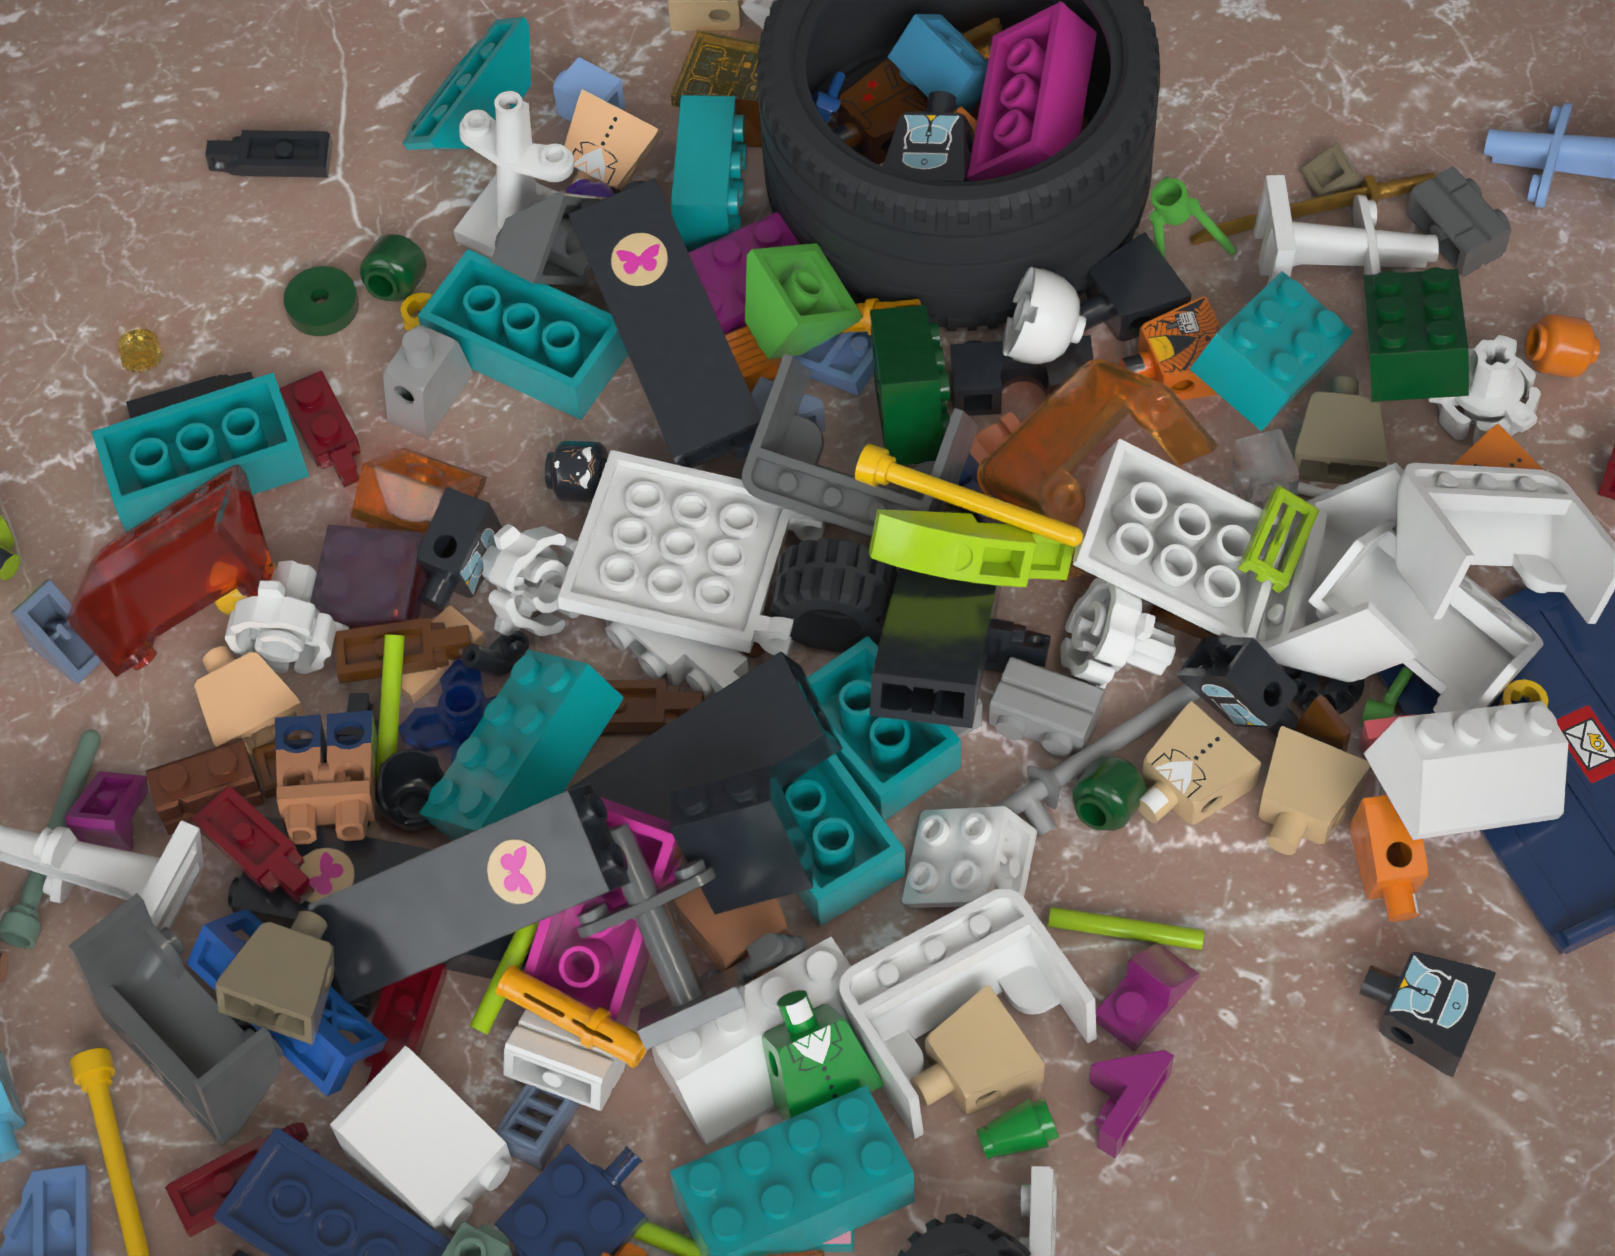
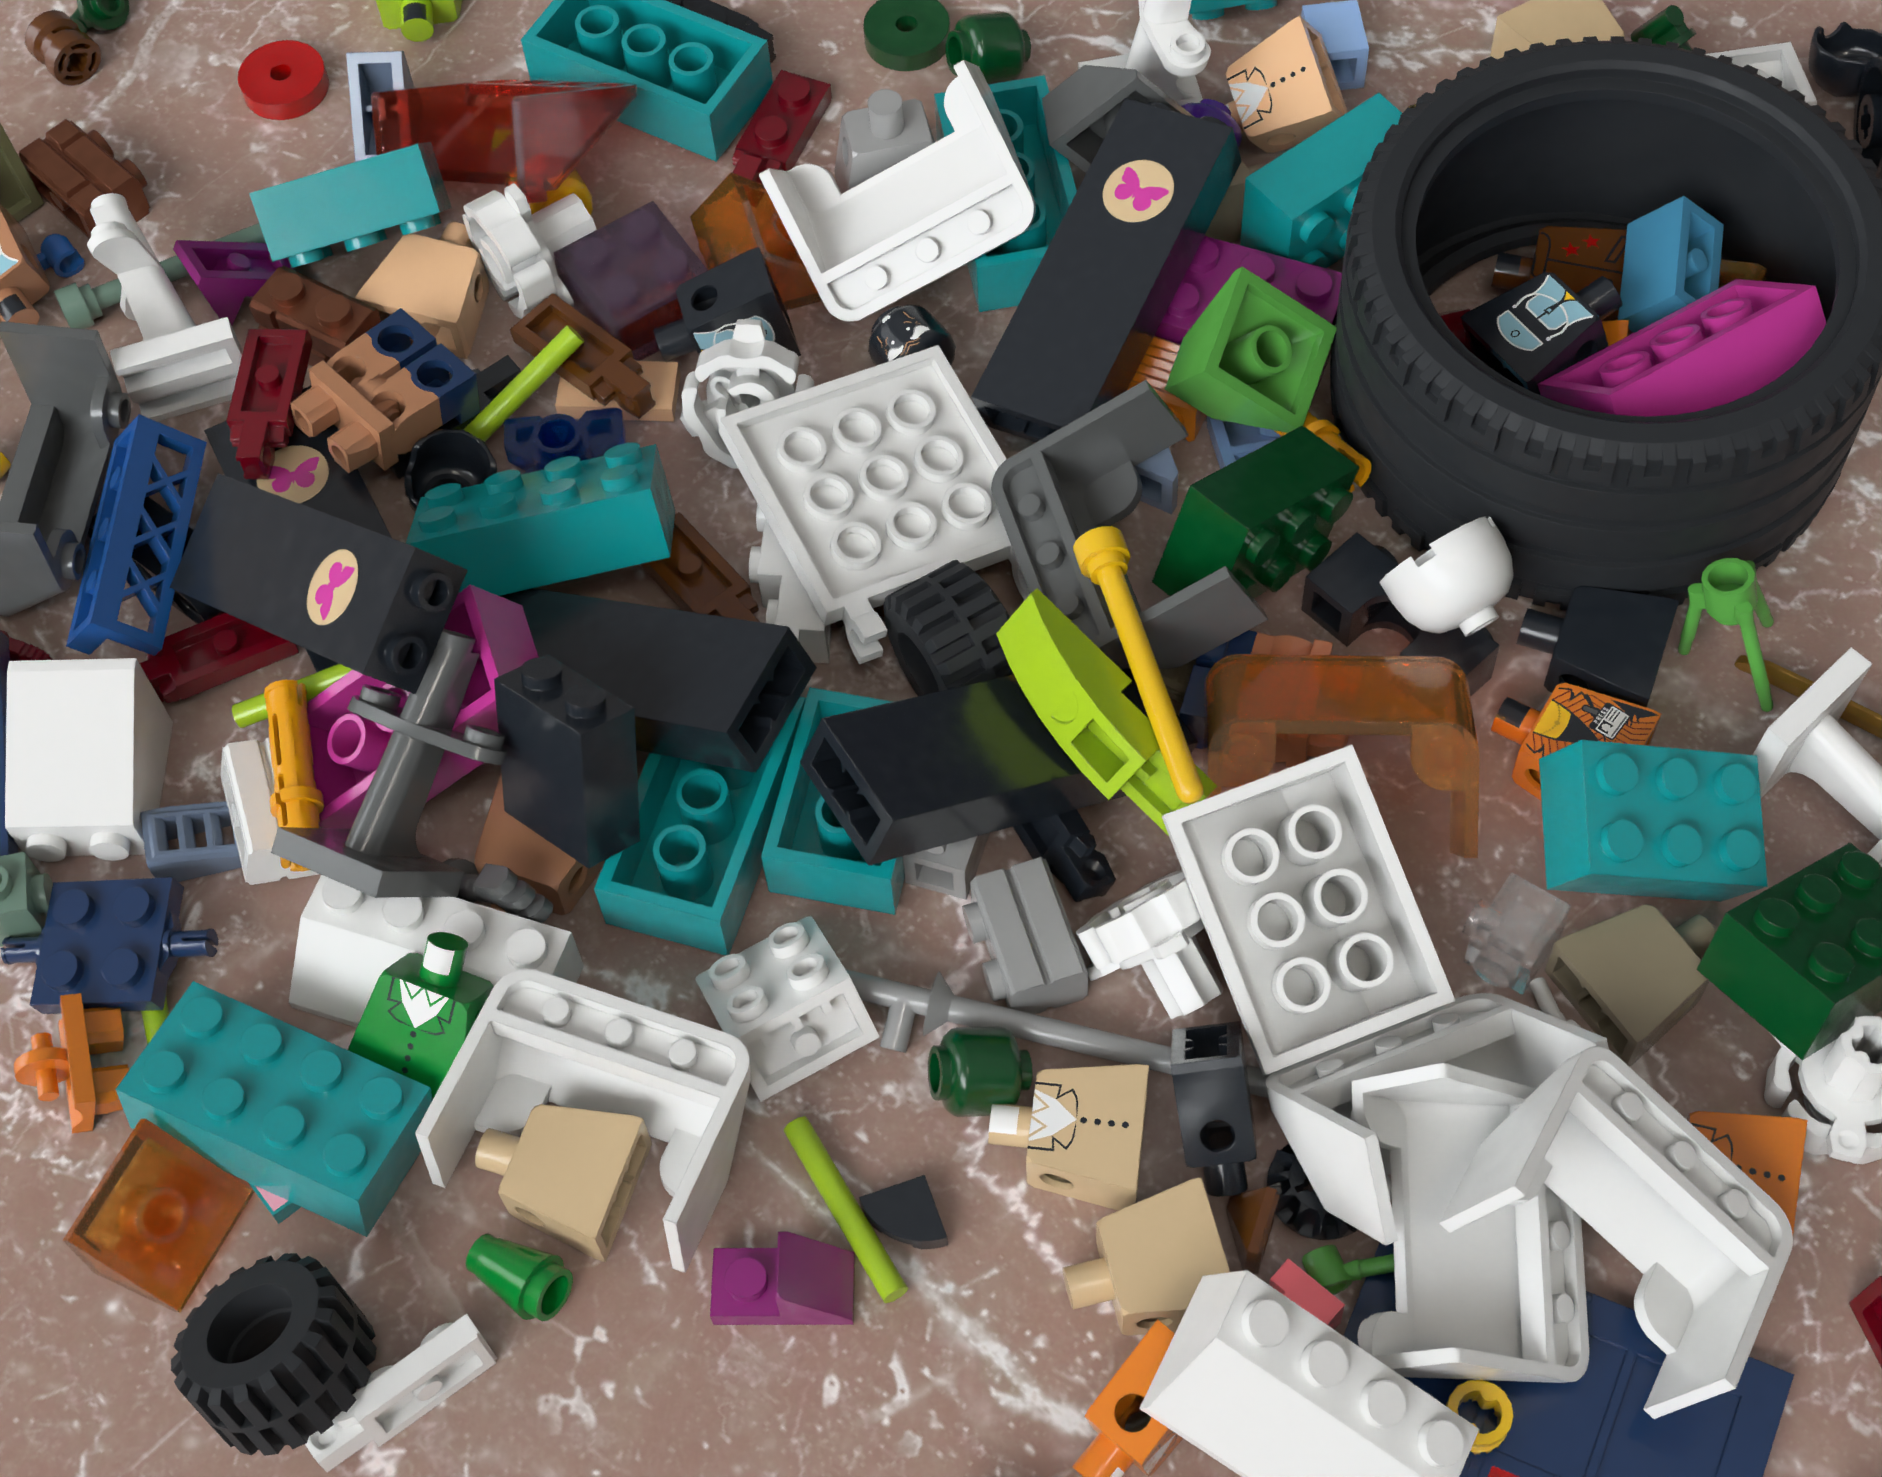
camera: 50 degrees right, 0 degrees up
(141, 693) = (352, 204): none -> teal brick
(281, 978) = (119, 507): dark tan torso -> none
(499, 386) = (913, 217): none -> white windscreen
(499, 656) = (673, 440): black arm -> none
(828, 102) = (1520, 221): blue hand -> none
(1135, 1085) = (655, 1358): magenta slope -> none
(1160, 897) = (906, 1214): none -> black tile
(1264, 569) = (1361, 1016): lime tile -> none

